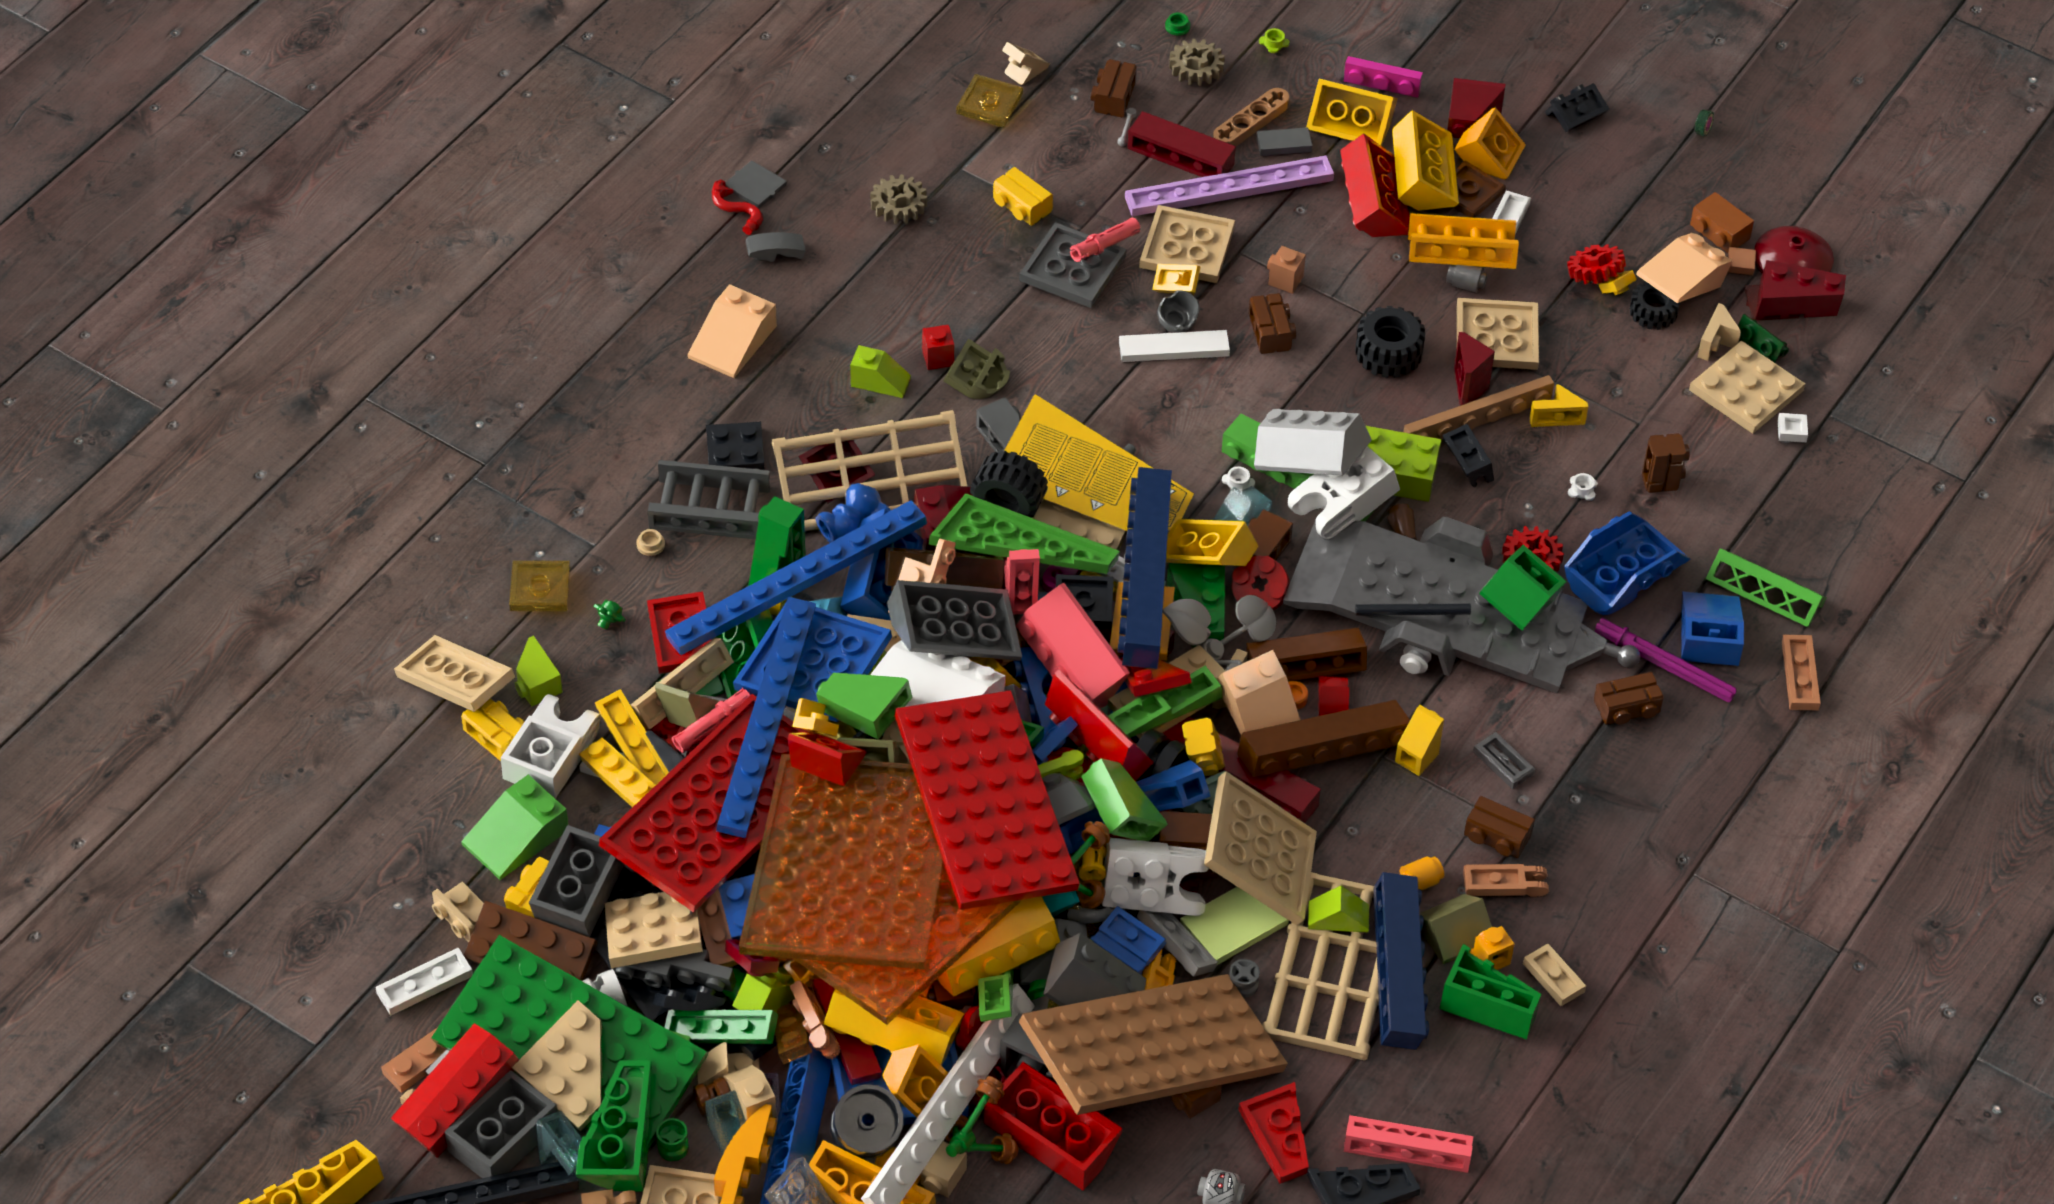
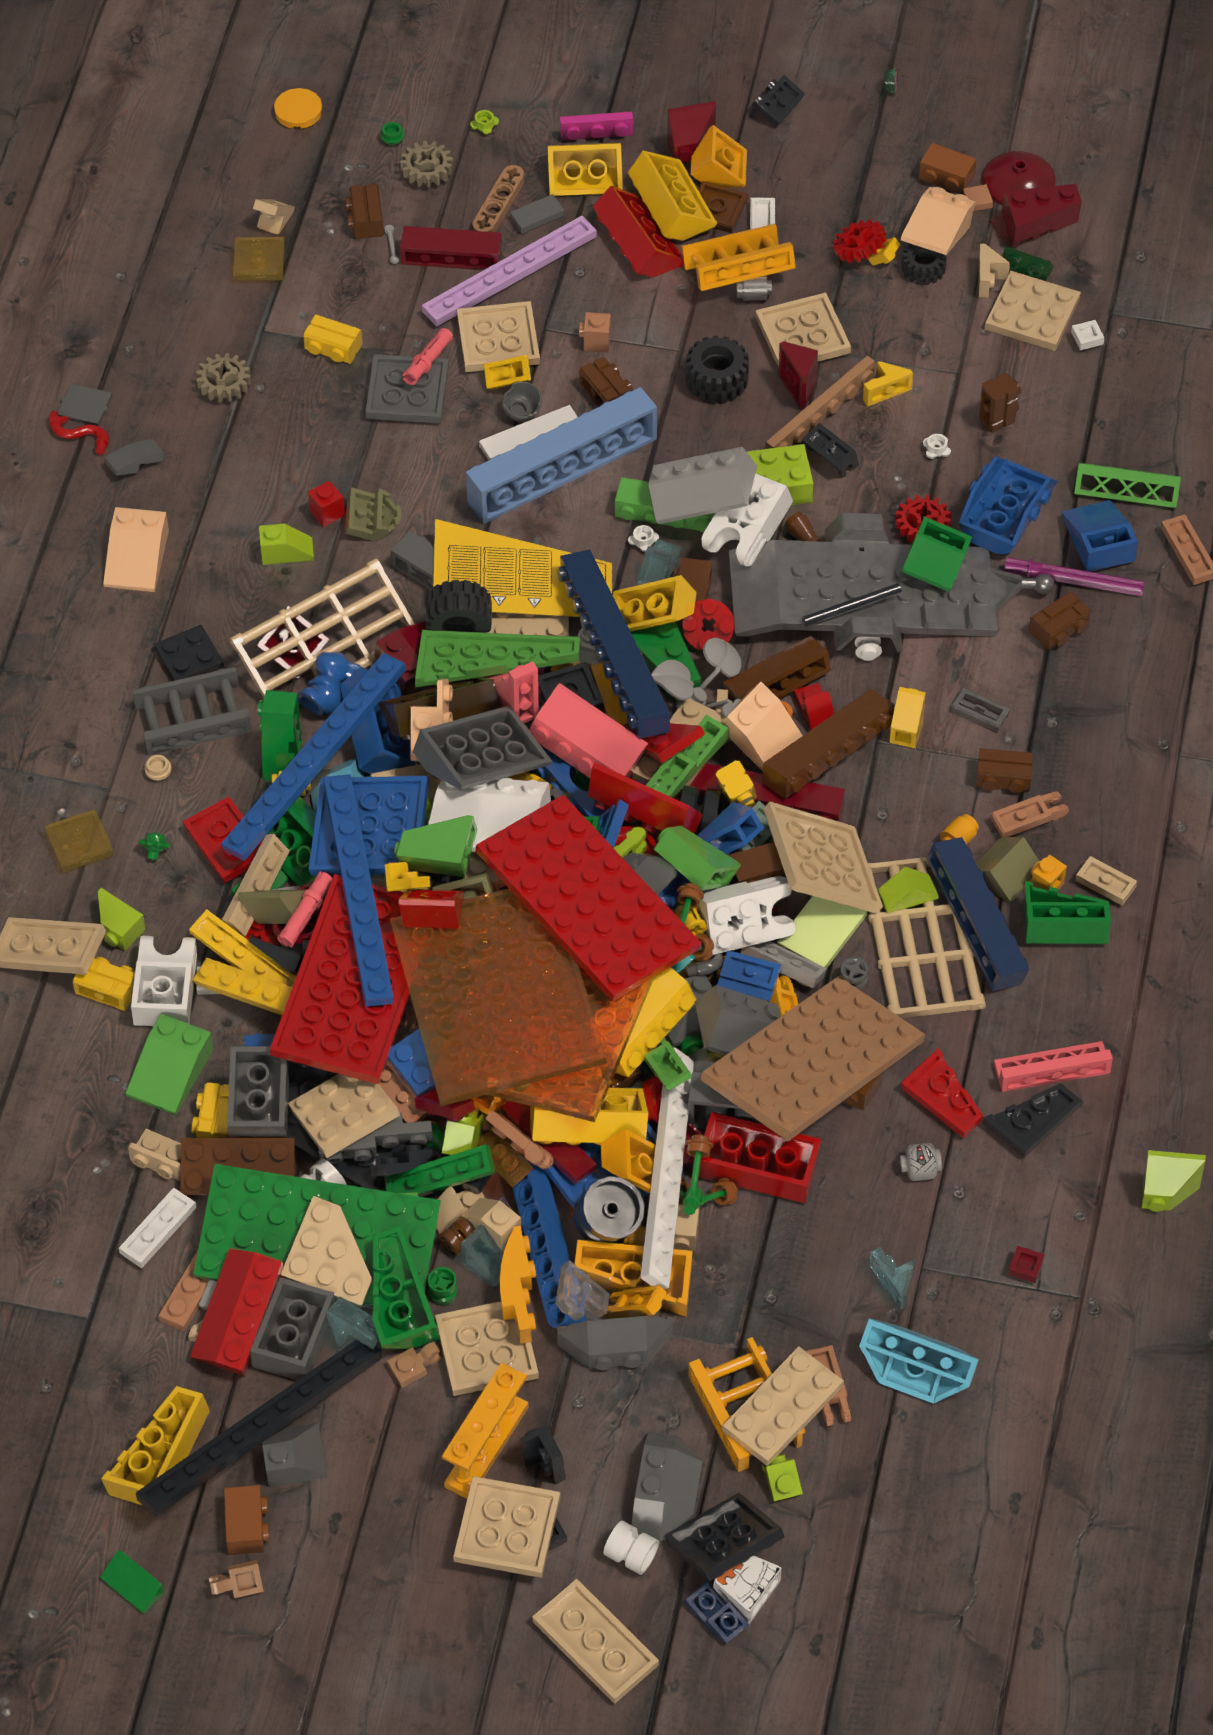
camera: 20 degrees left, 5 degrees up
(1191, 373) = (561, 455): none -> medium blue brick

